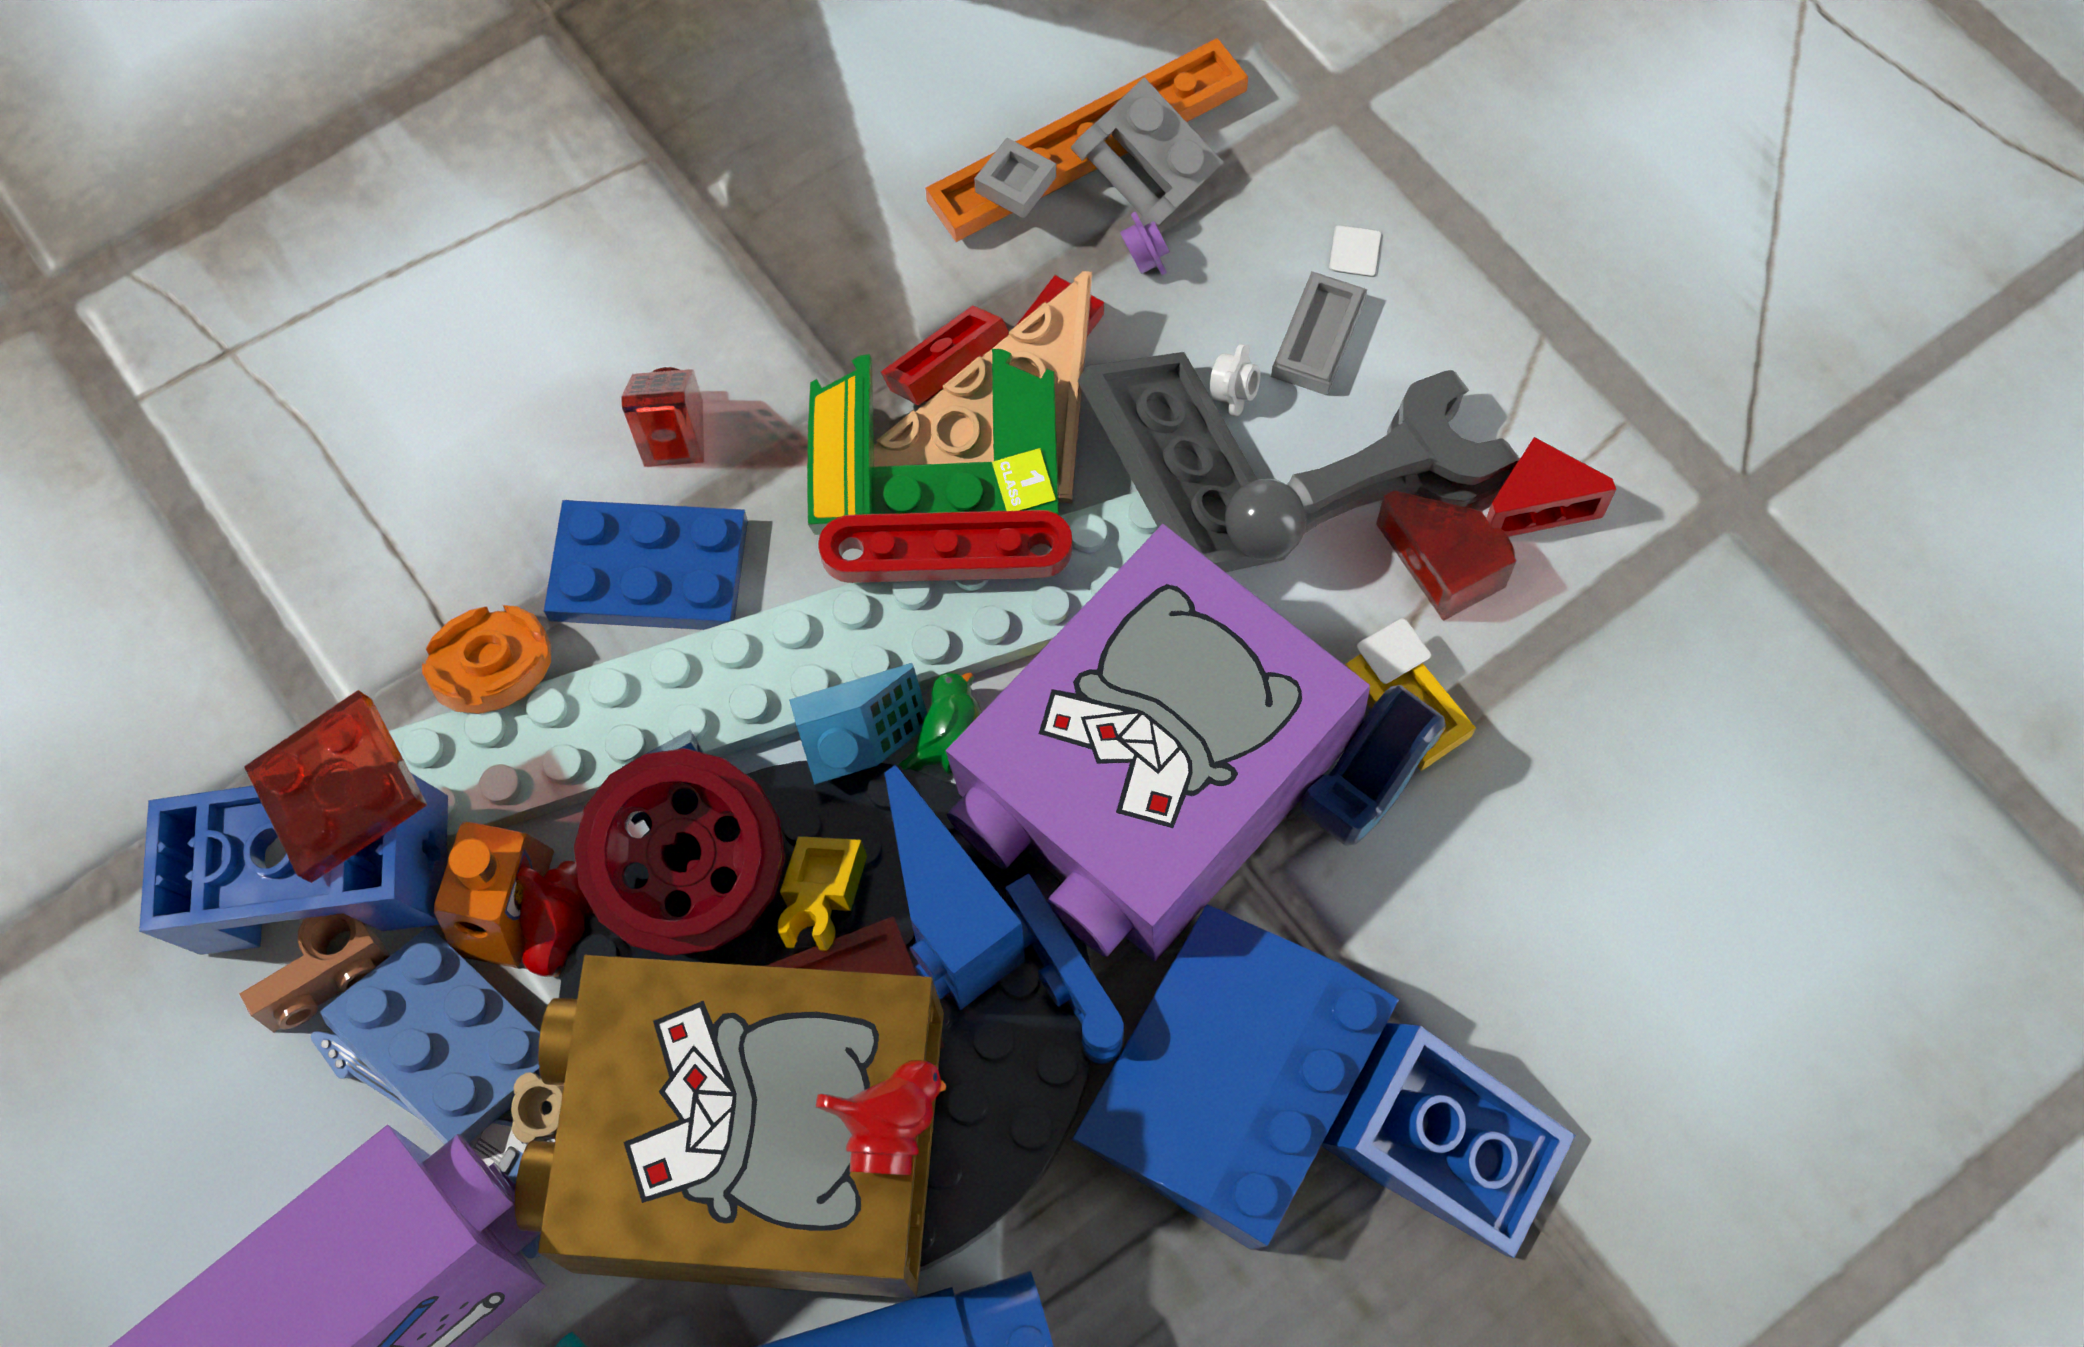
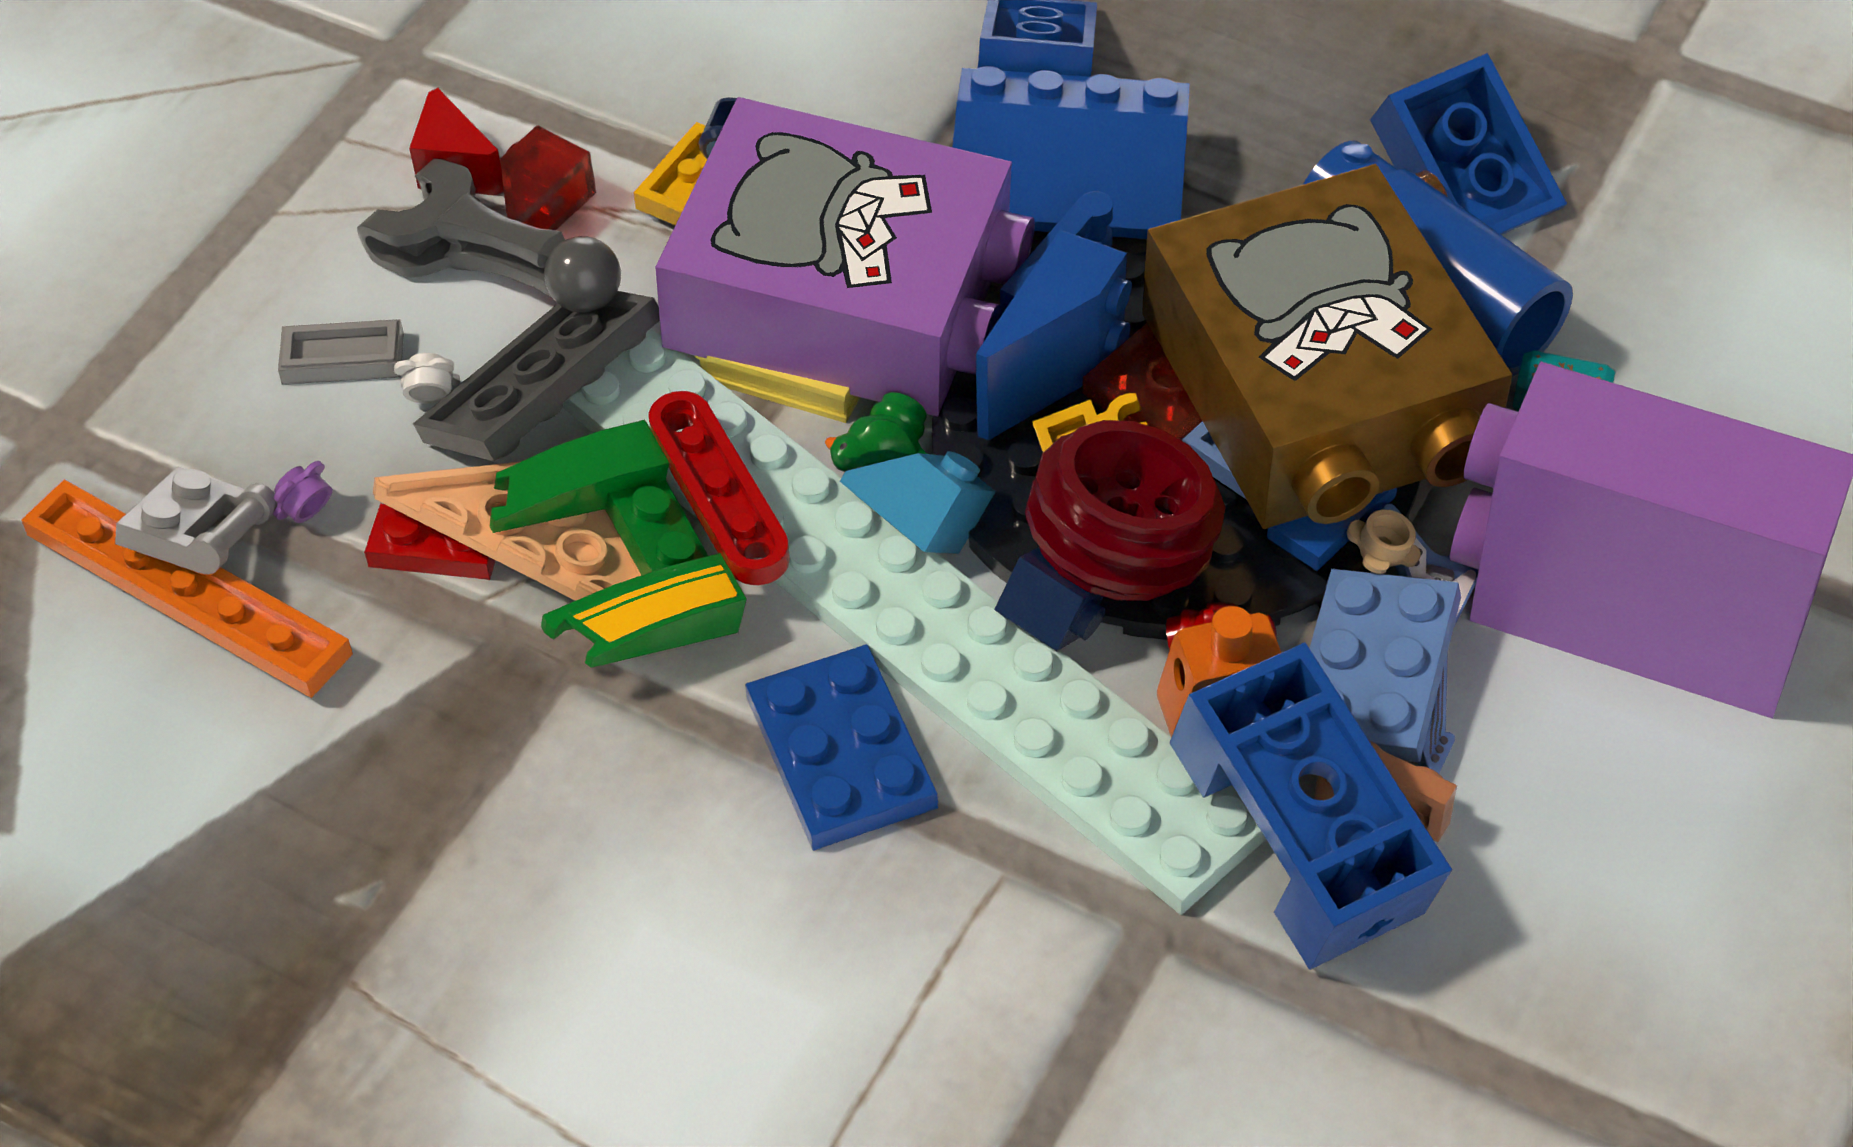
camera: 115 degrees left, 15 degrees down
(335, 786) = (1237, 730): clear red plate -> none
(487, 659) = (1013, 809): orange tile -> none
(665, 416) = (677, 770): clear red slope -> none
(888, 1118) = (1277, 186): red animal -> none
(944, 354) = (496, 593): red plate -> none
(1015, 177) = (276, 591): light grey plate -> none
(1023, 480) = (626, 448): neon yellow sticker -> none
(1355, 250) = (232, 362): white sticker -> none
(1393, 650) = (654, 186): white sticker -> none

